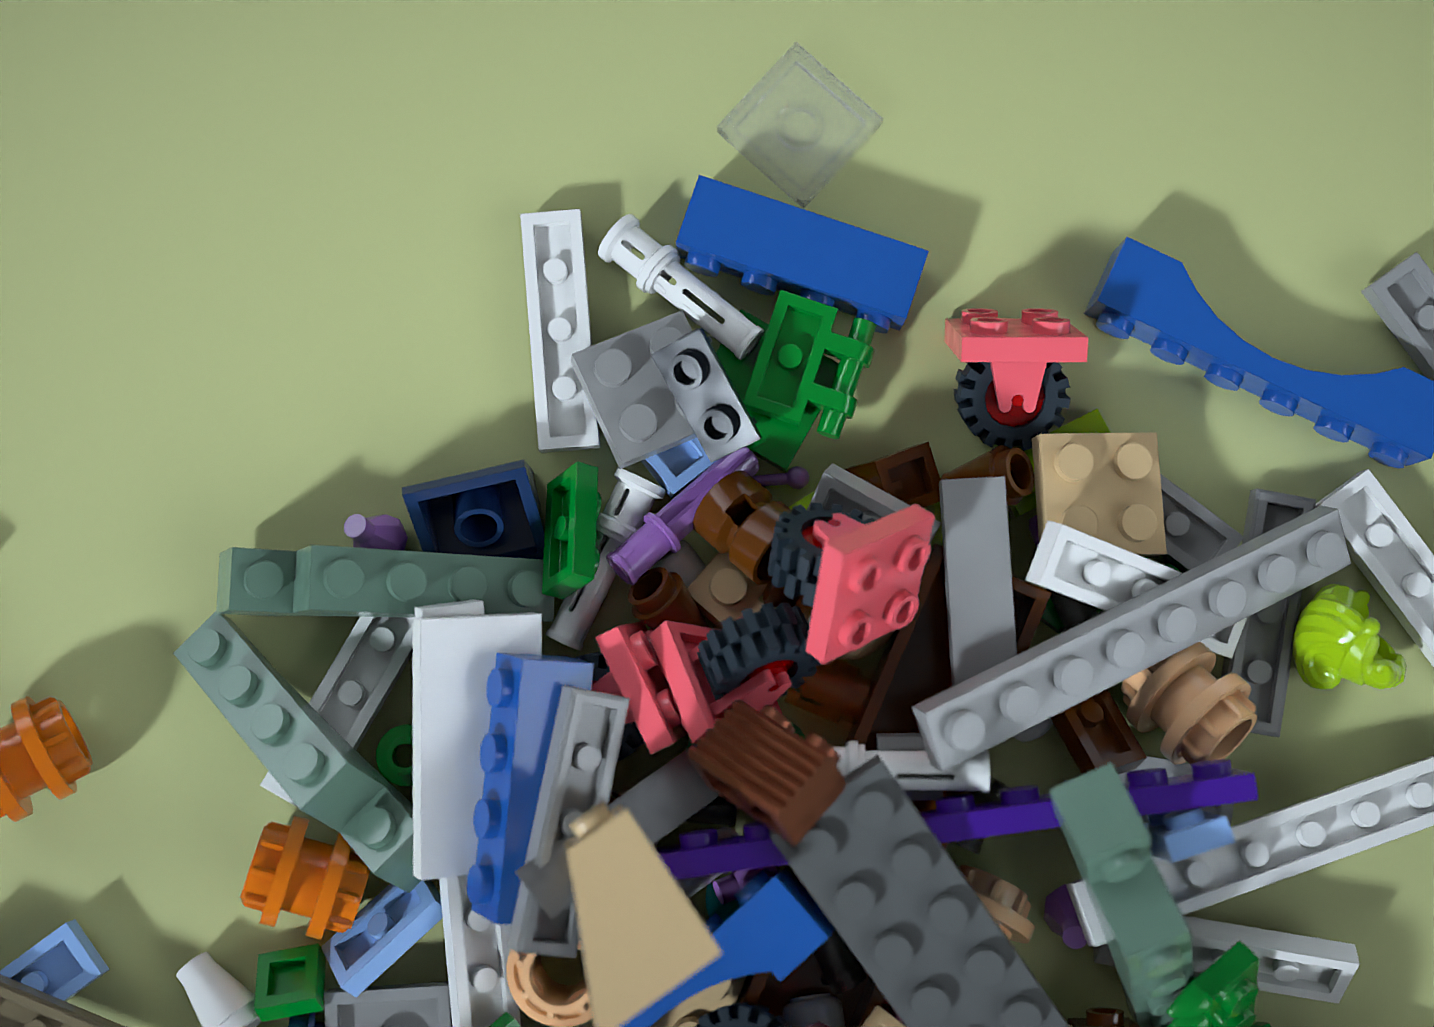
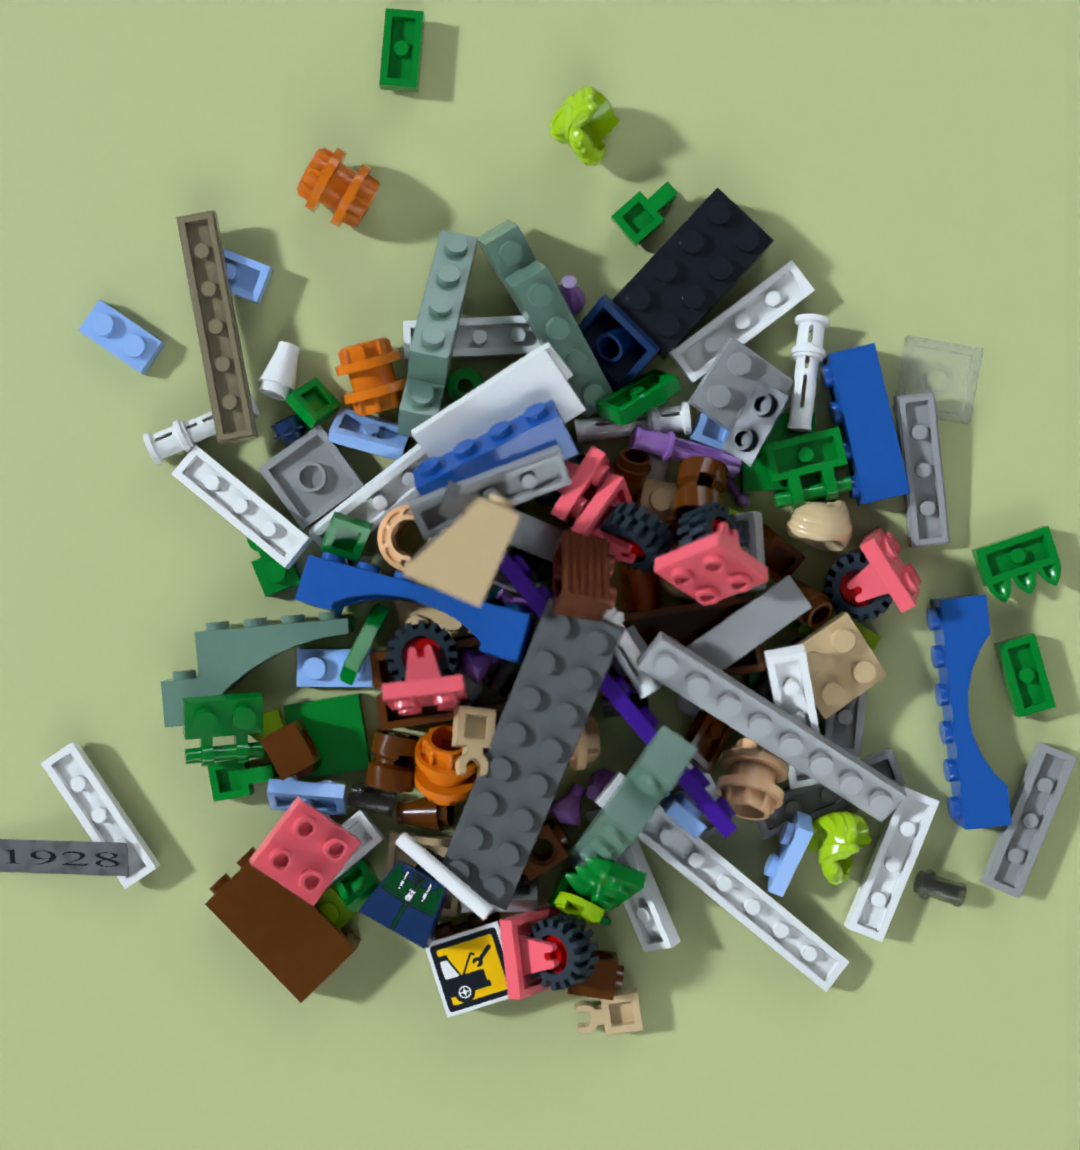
camera: 65 degrees right, 5 degrees up
(161, 371) = (583, 123): none -> lime hair
(333, 375) = (641, 215): none -> green plate
(450, 352) = (693, 271): none -> black brick
(796, 991) = (476, 663): none -> medium lavender rock
(890, 207) = (923, 466): none -> light grey tile
(898, 393) = (822, 525): none -> tan hair
(1072, 982) = (568, 807): none -> medium lavender rock
(1103, 166) = (1018, 559): none -> green plate
(1263, 253) = (1024, 675): none -> green plate
(1311, 702) = (794, 841): none -> light blue plate

